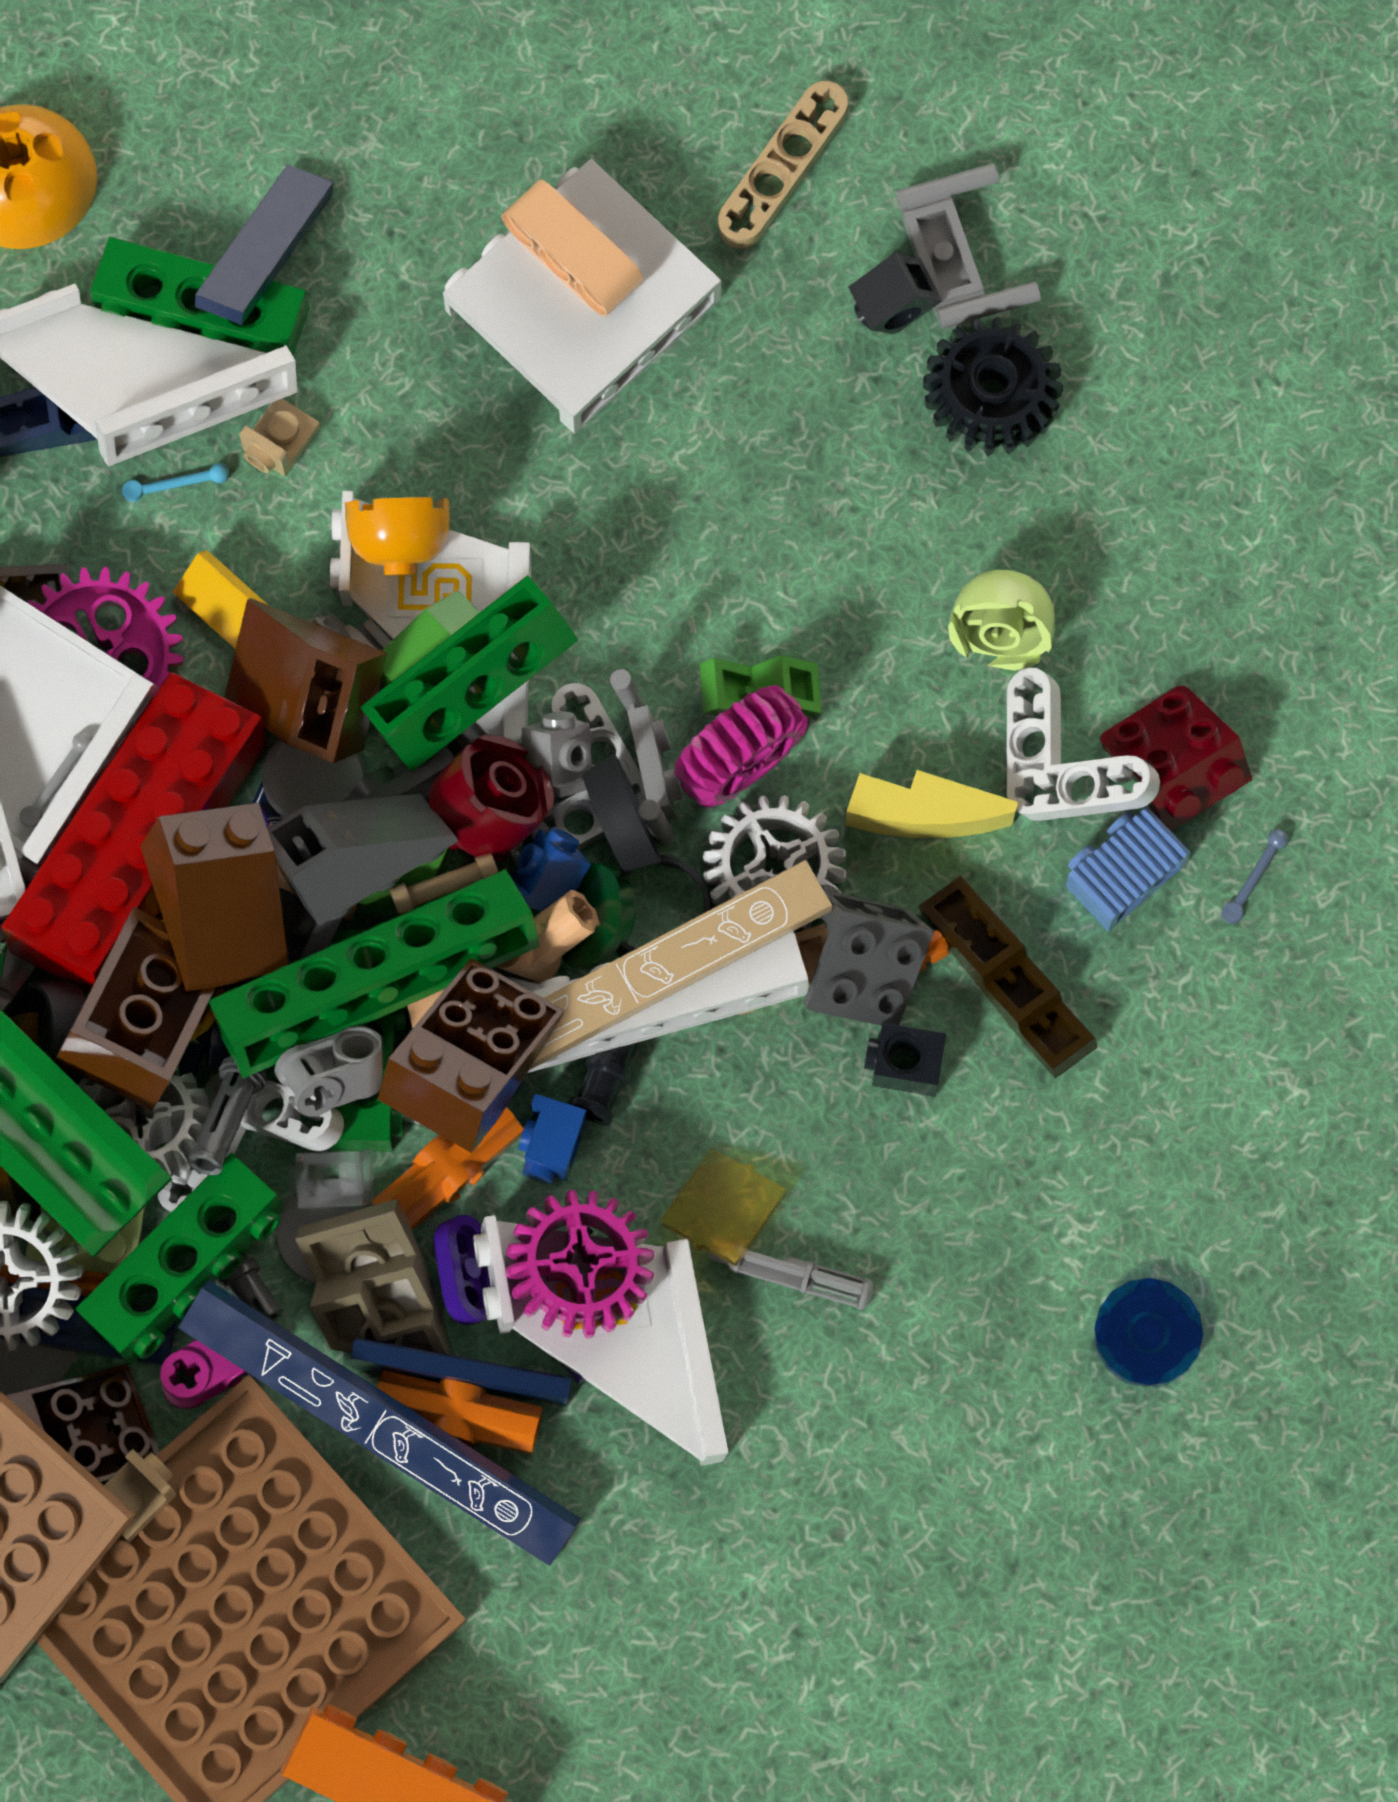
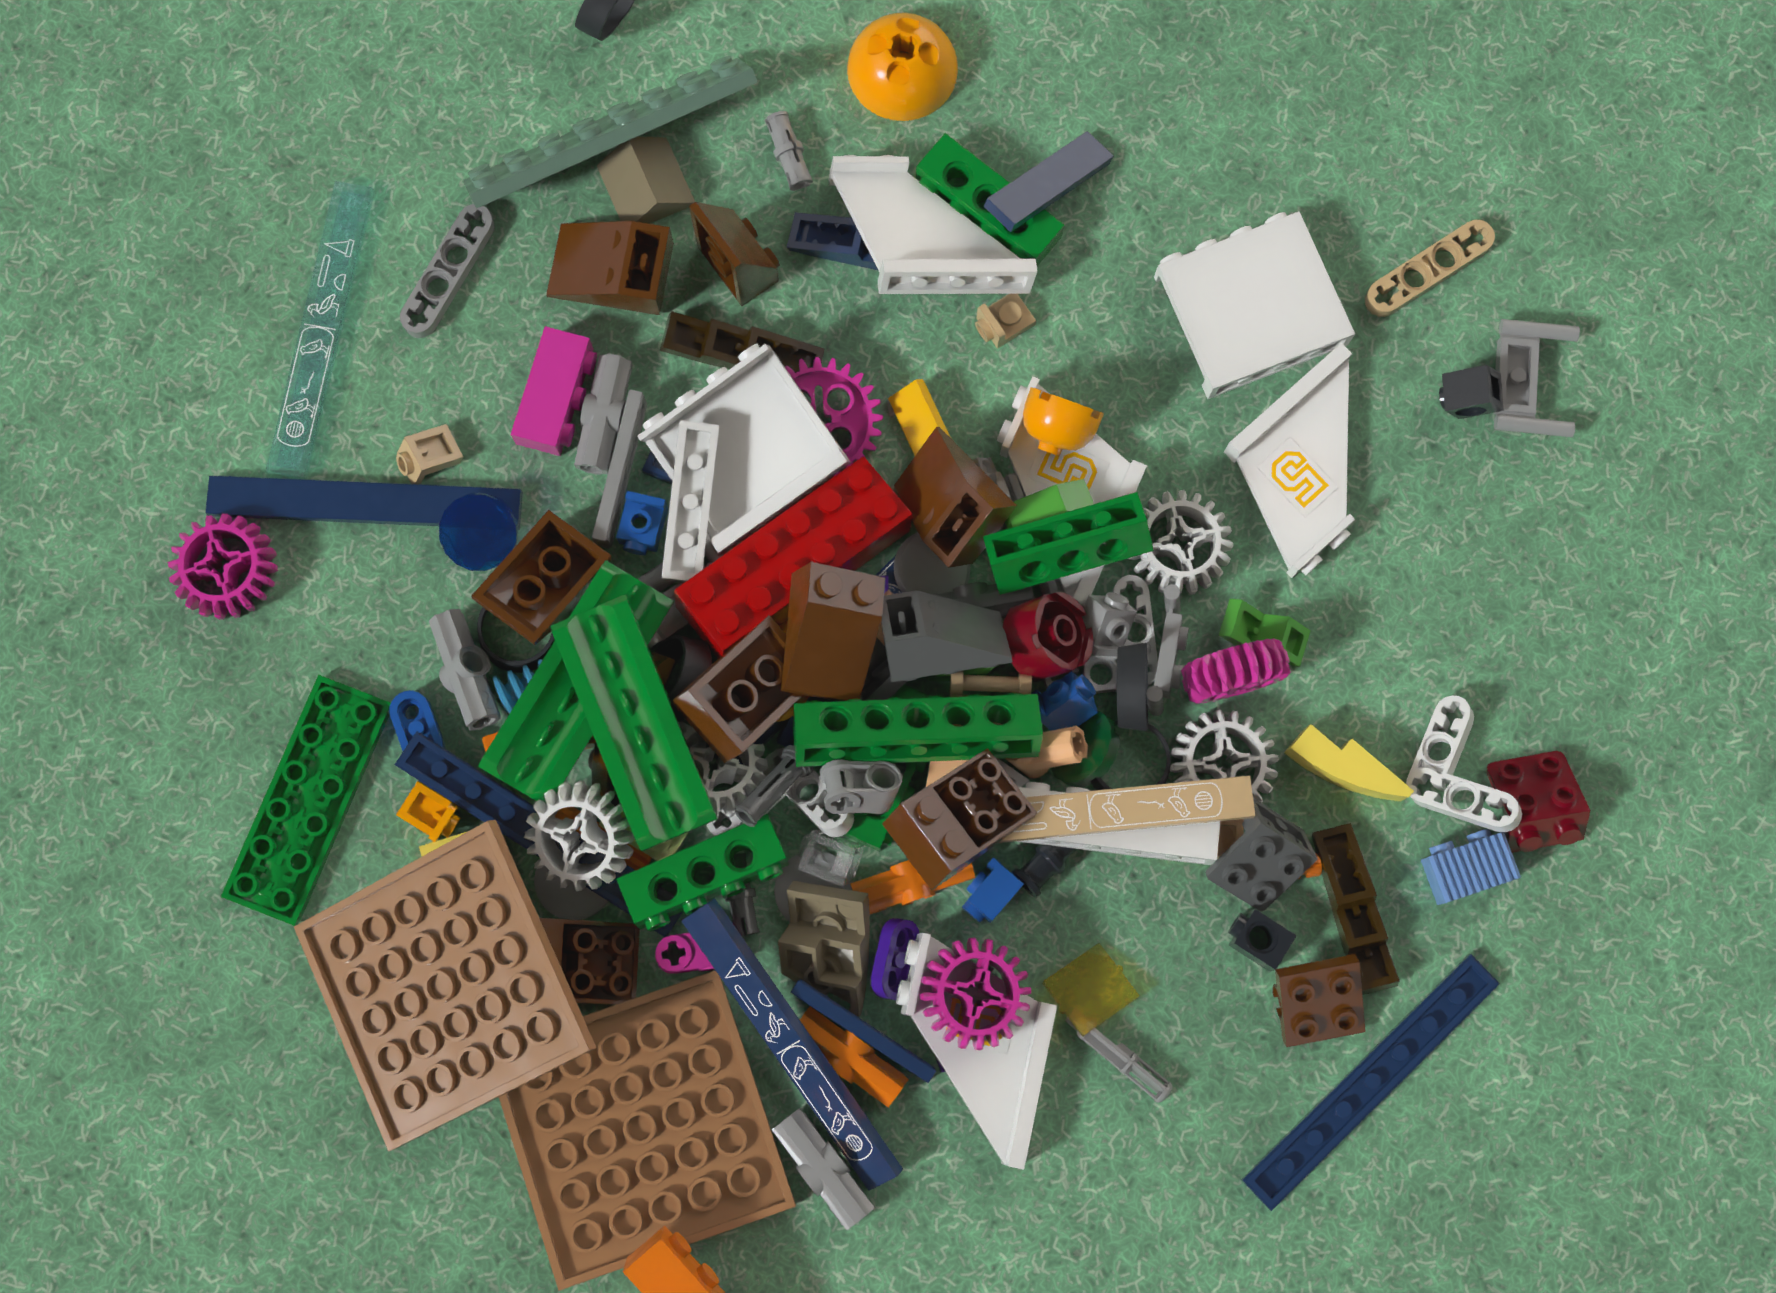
camera: 20 degrees right, 5 degrees up
(32, 814) = (729, 516): light grey hinge -> none
(134, 490) = (890, 317): medium azure hinge -> none
(143, 1489) = (609, 1021): tan bracket -> none
(481, 1560) = (823, 1169): none -> light grey piece
(572, 247) = (1261, 270): light nougat beam -> none
(640, 593) = (1198, 536): none -> white gear
(717, 464) = (1299, 463): none -> white piece
(999, 357) = (1533, 471): black gear -> none
(1004, 618) = (1462, 651): yellowish green cylinder -> none
(1008, 1101) = (1320, 1000): none -> reddish brown plate
(1111, 1177) = (1370, 1082): none -> dark blue tile
(1148, 1332) = (1350, 1204): clear blue tile -> none
(1233, 911) = (1531, 928): sand blue hinge -> none

